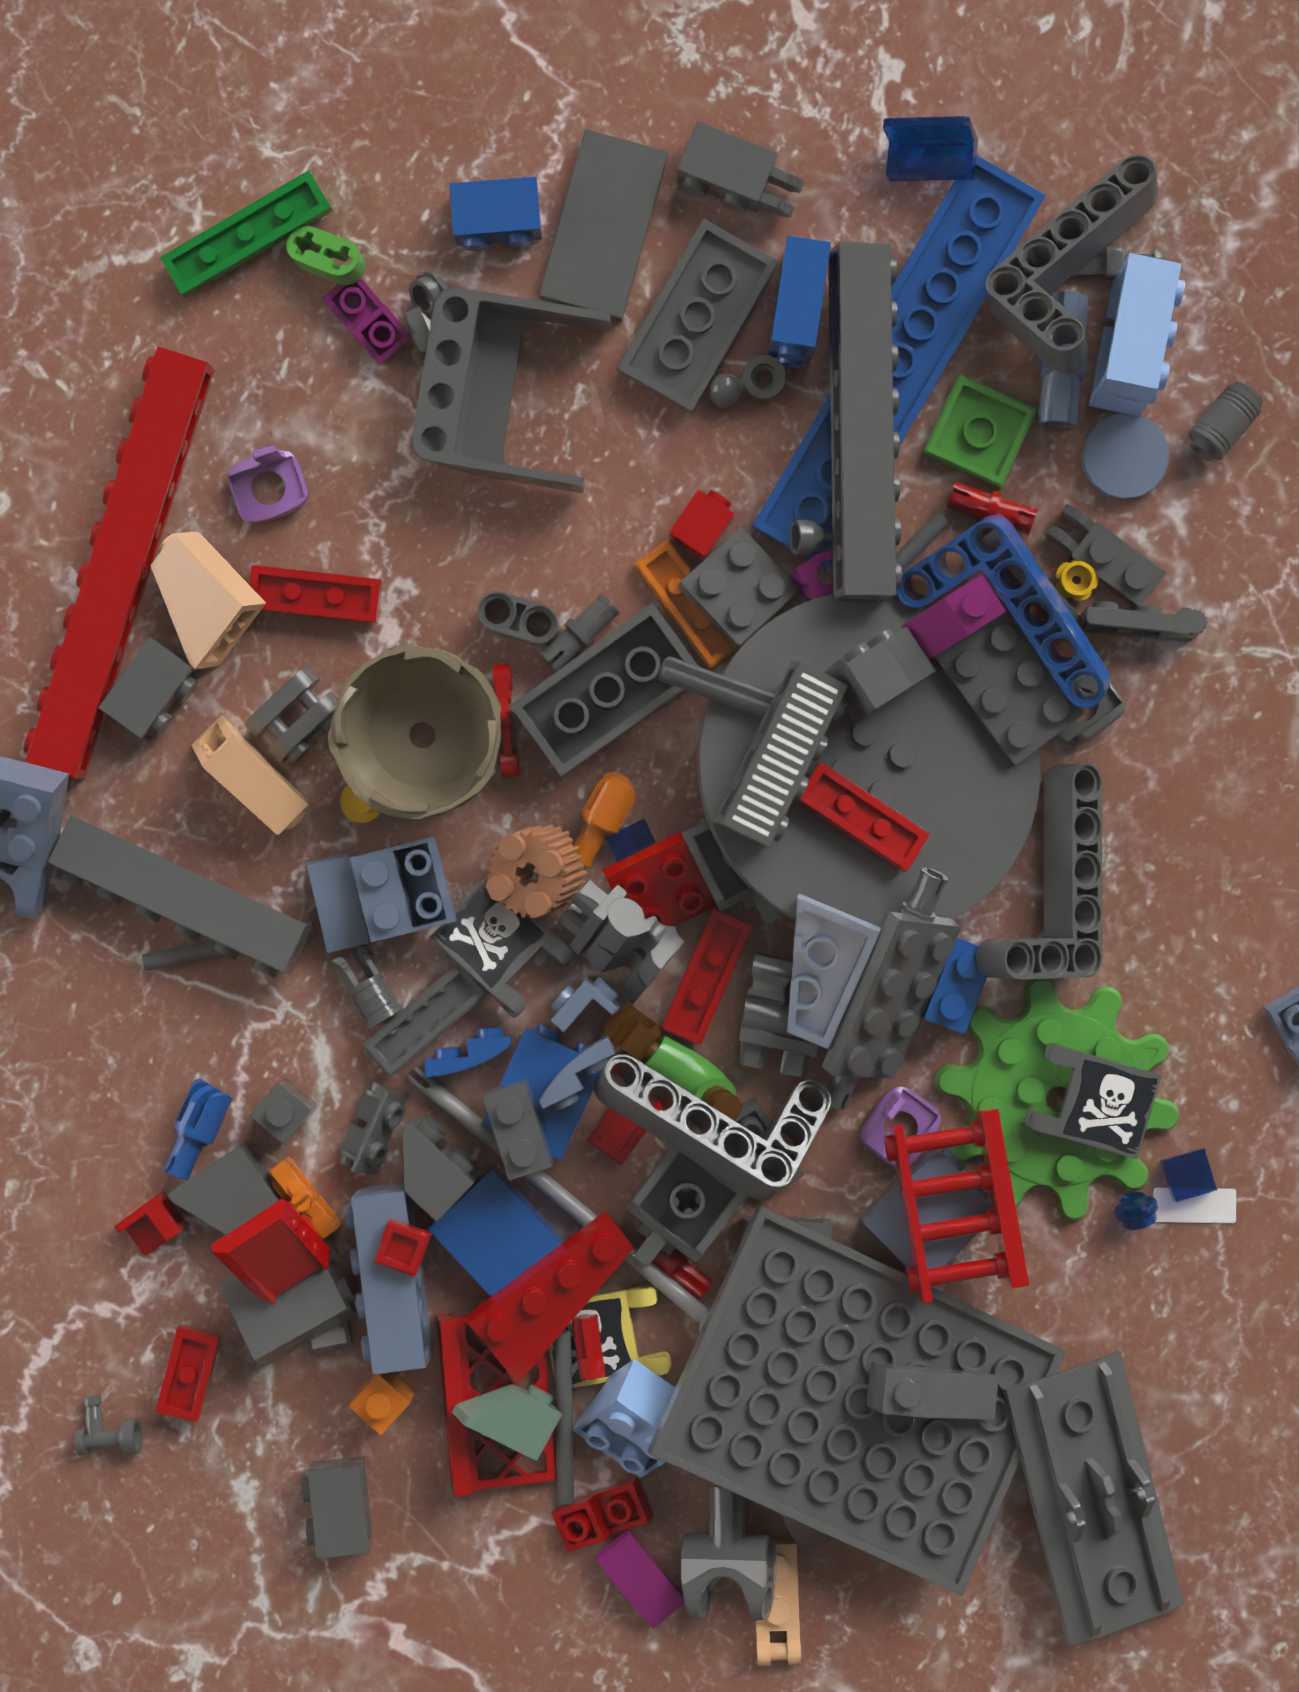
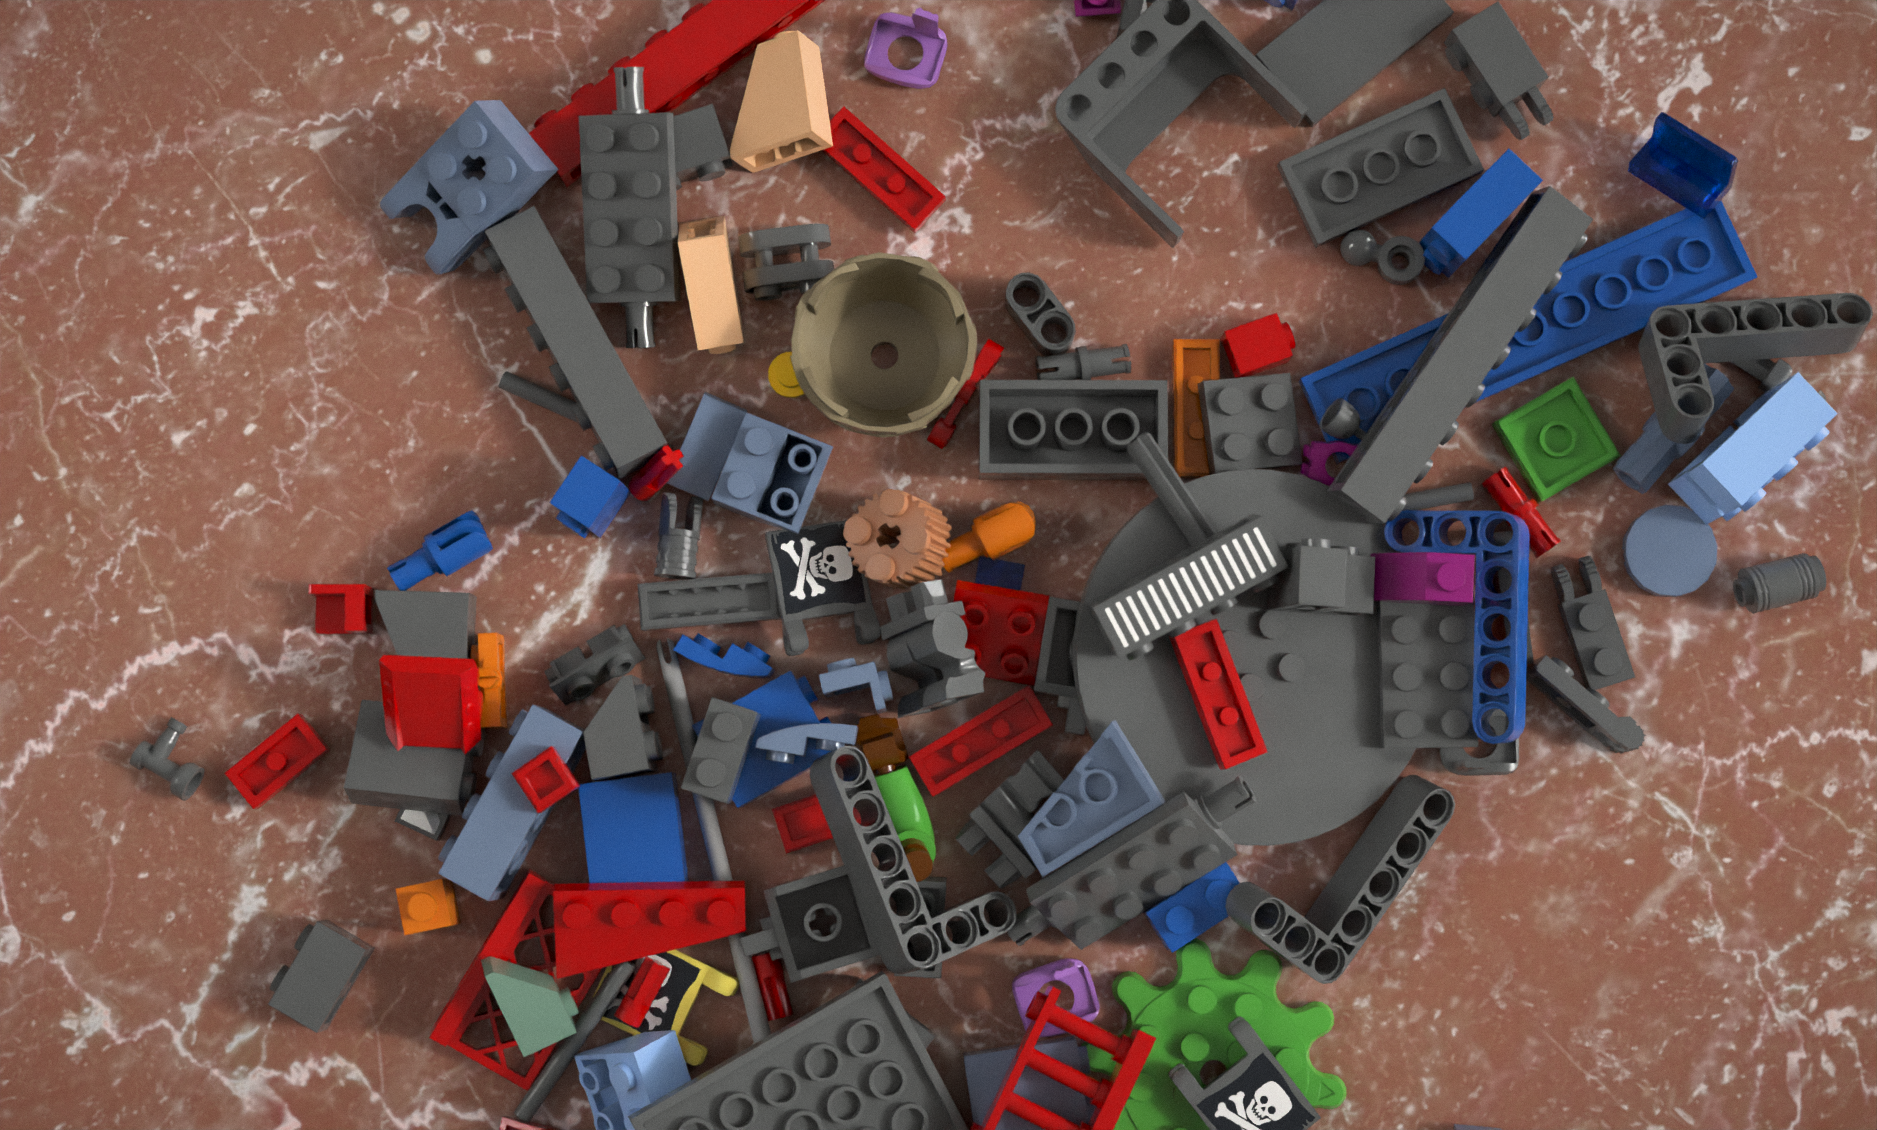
camera: 35 degrees right, 5 degrees down
(145, 763) = (630, 207): none -> dark grey plate
(278, 1009) = (589, 499): none -> blue brick
(284, 1110) = (529, 591): dark grey brick -> none
(314, 952) = (656, 473): none -> red piece
(1087, 577) = (1563, 627): yellow plate -> none

